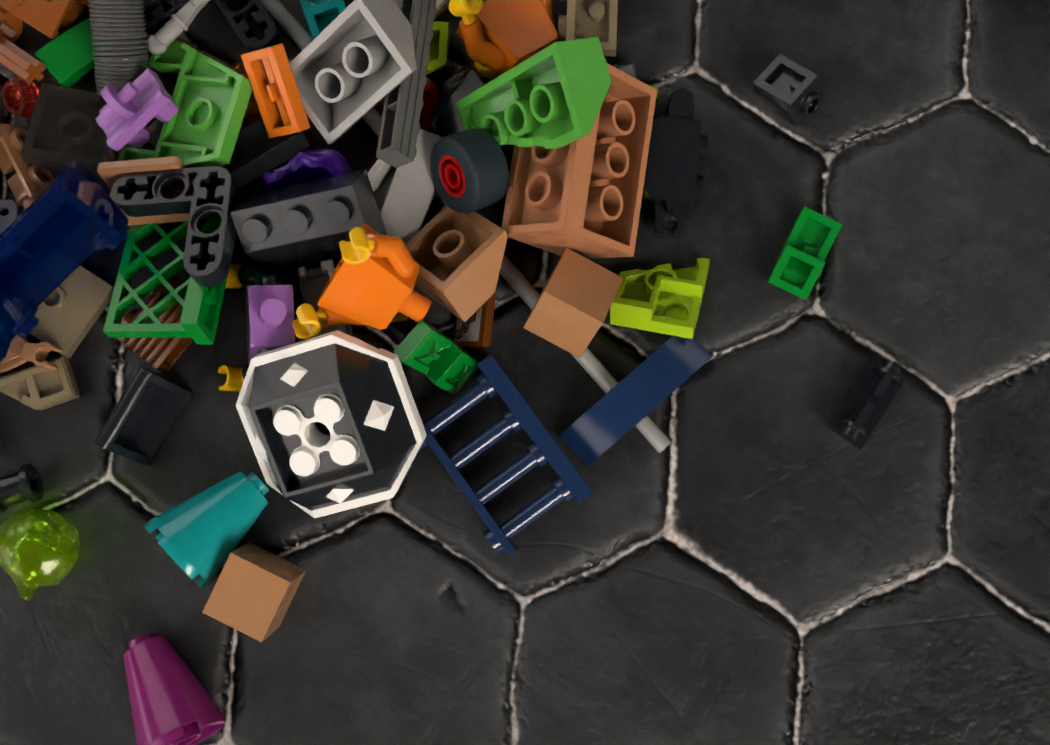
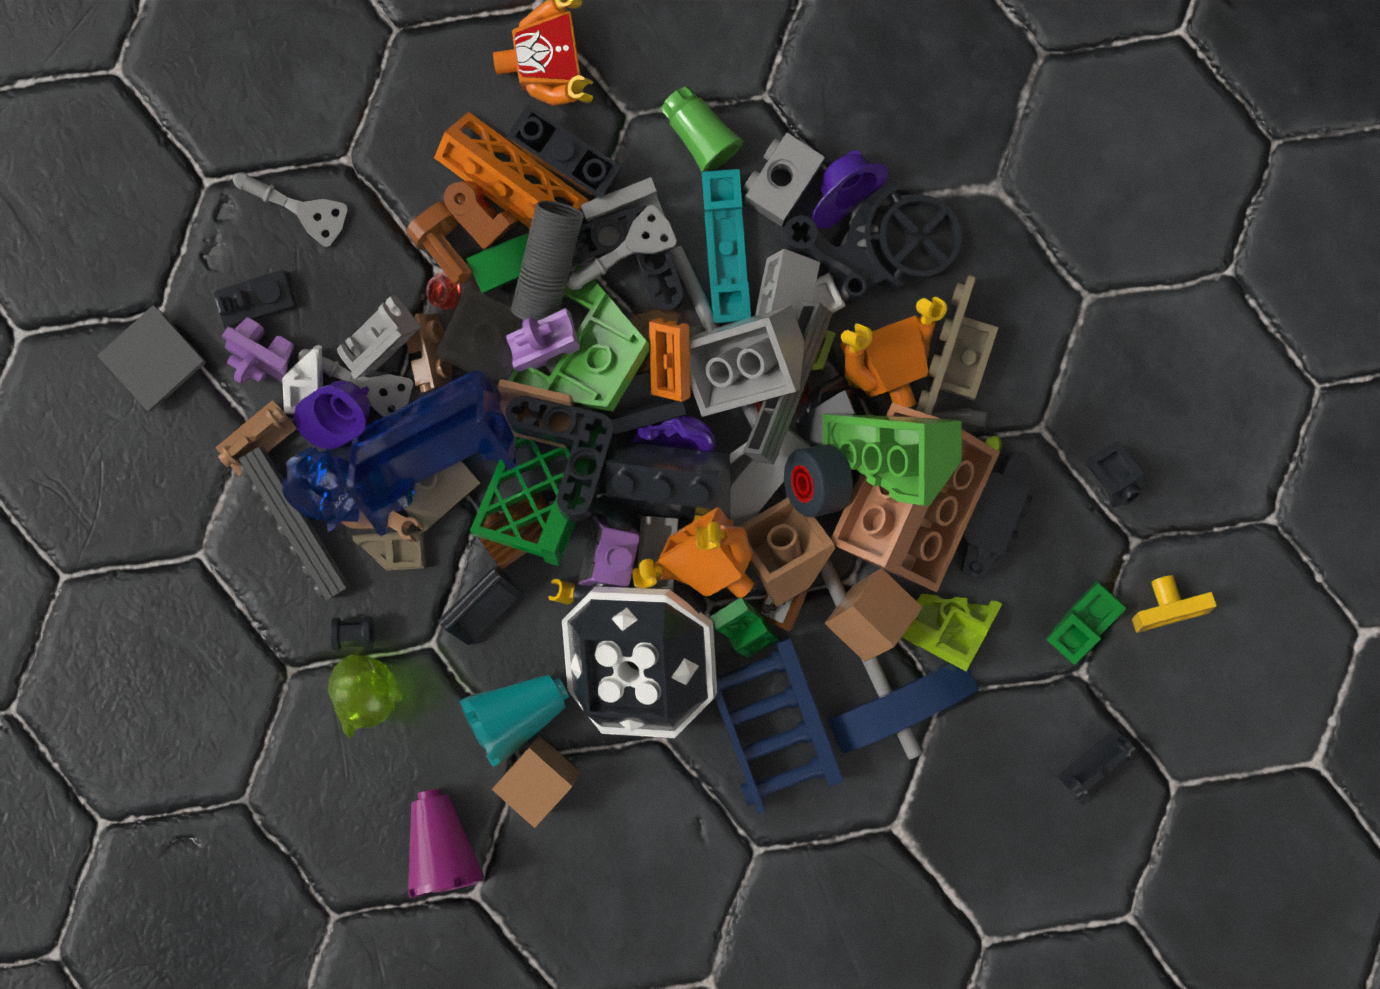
camera: 20 degrees right, 5 degrees up
(890, 210) = (1171, 607): none -> yellow tile

